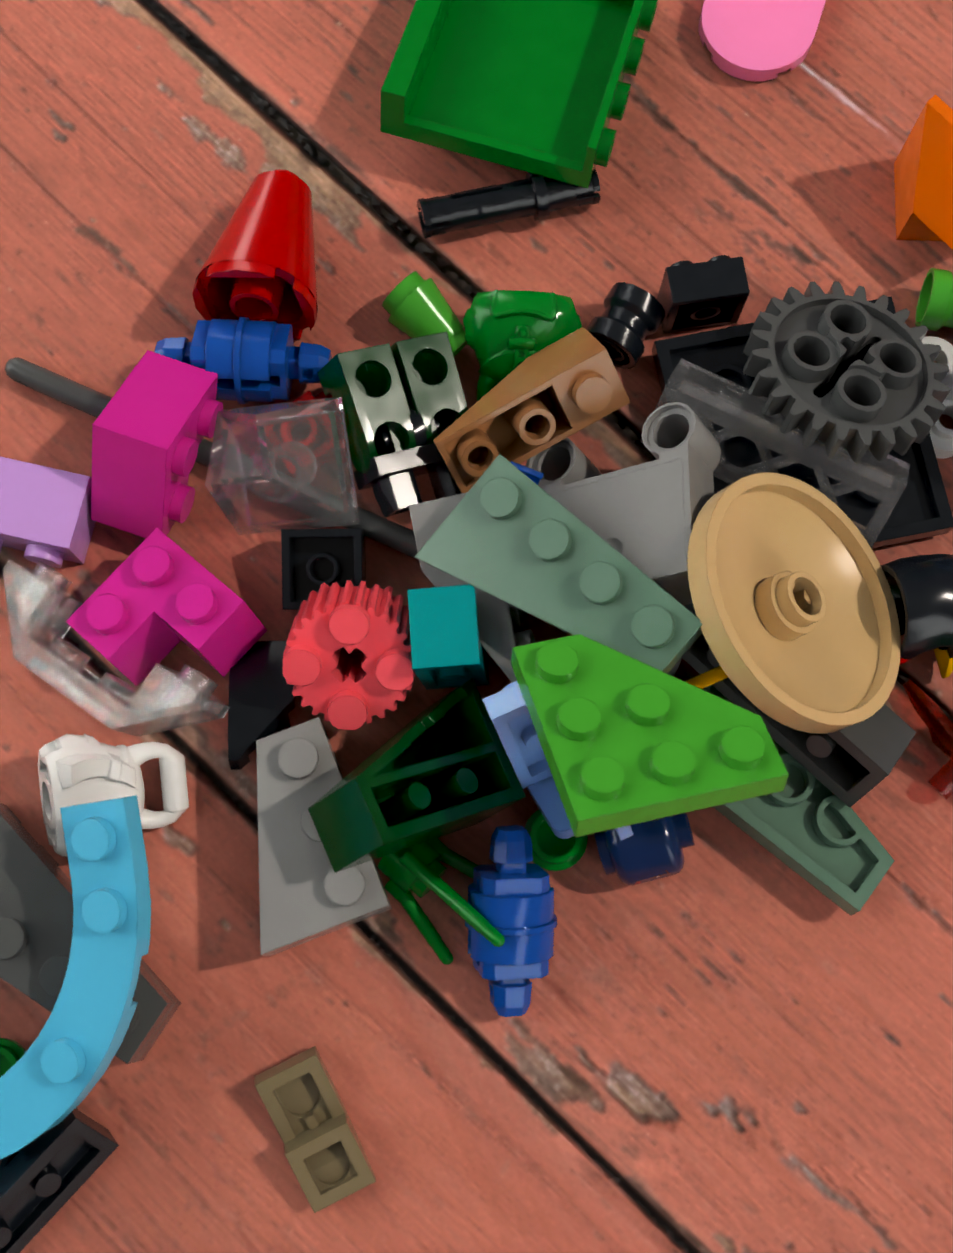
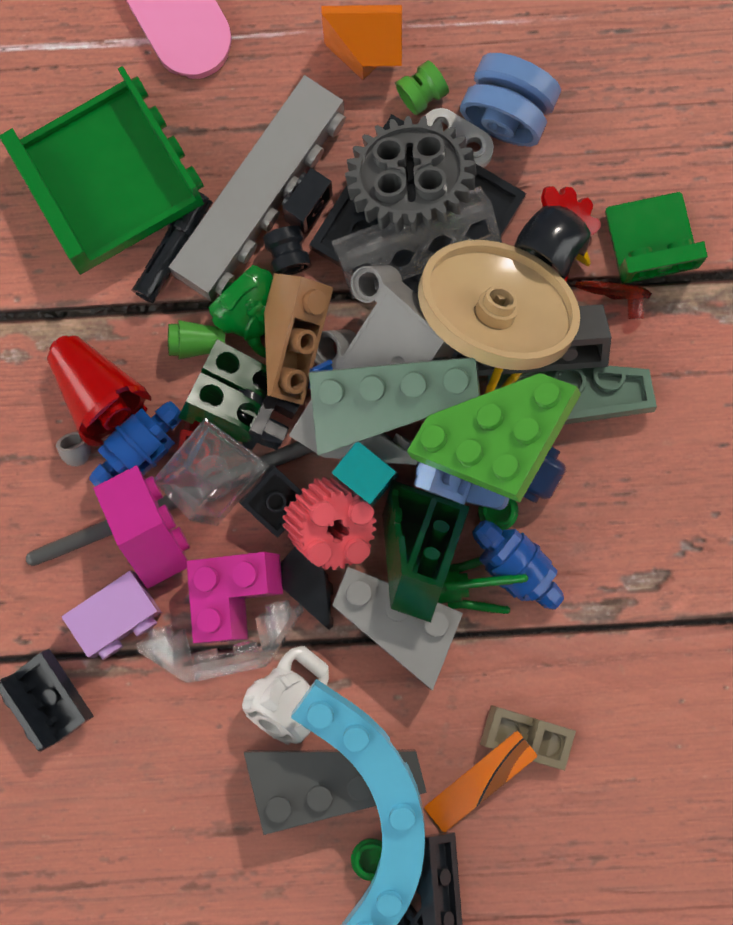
camera: 40 degrees left, 5 degrees up
(176, 301) = (73, 449): none -> light grey hinge
(209, 1119) = (480, 781): none -> orange sticker
(639, 232) = (258, 189): none -> light grey brick

